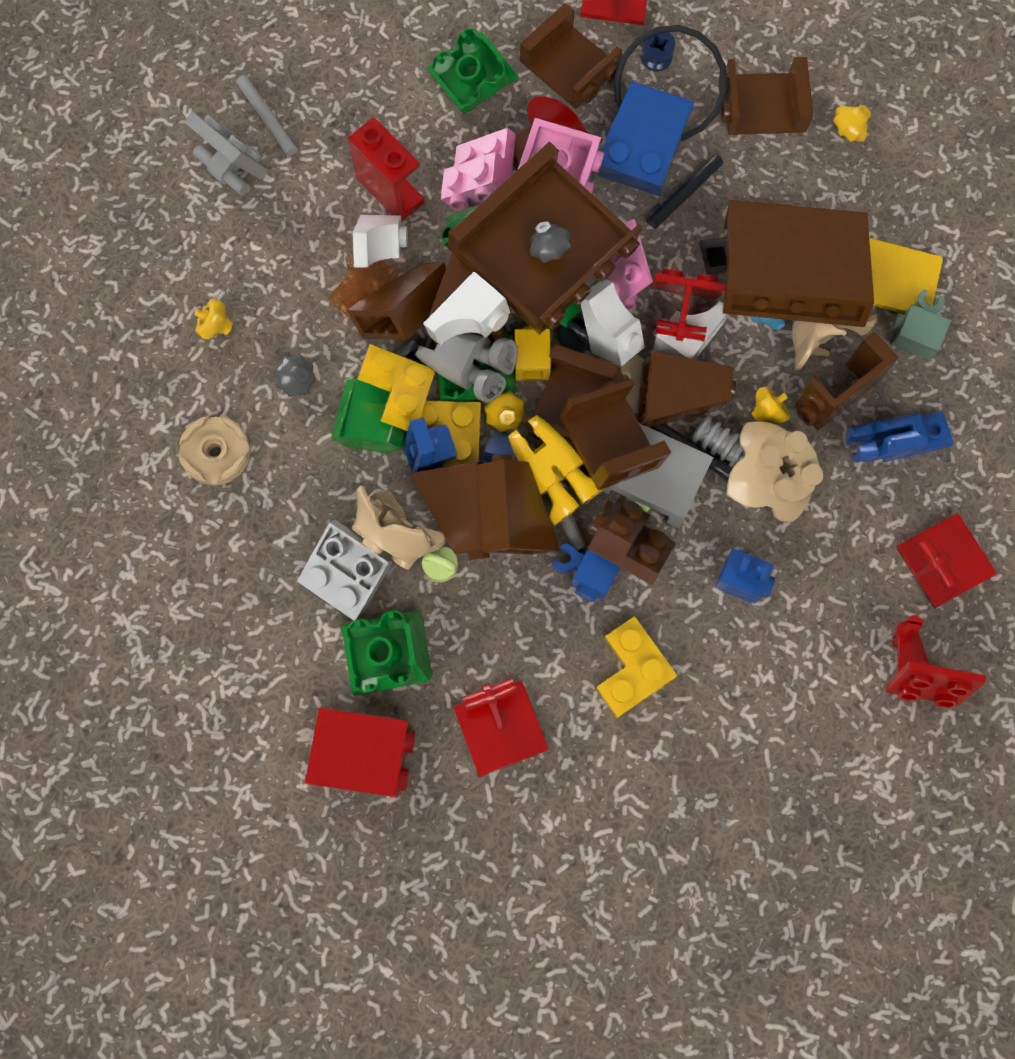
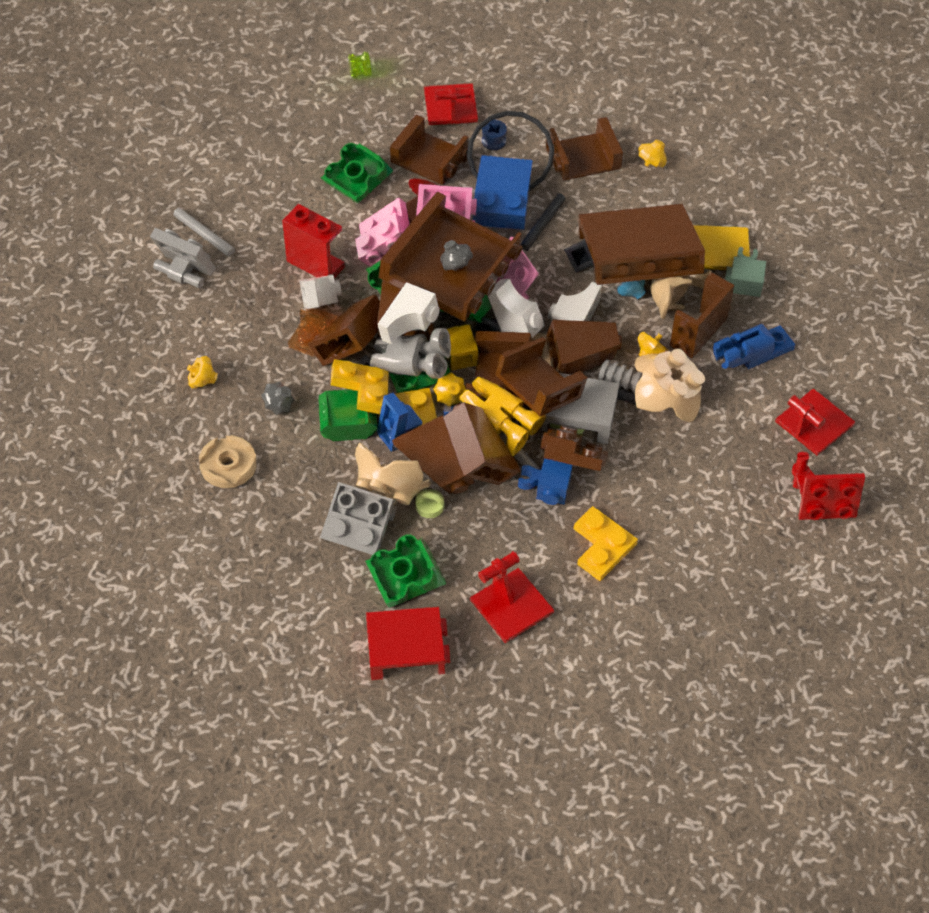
camera: 15 degrees left, 20 degrees down
(673, 281) = (566, 277): red plate -> none
(746, 576) = (668, 460): blue brick -> none

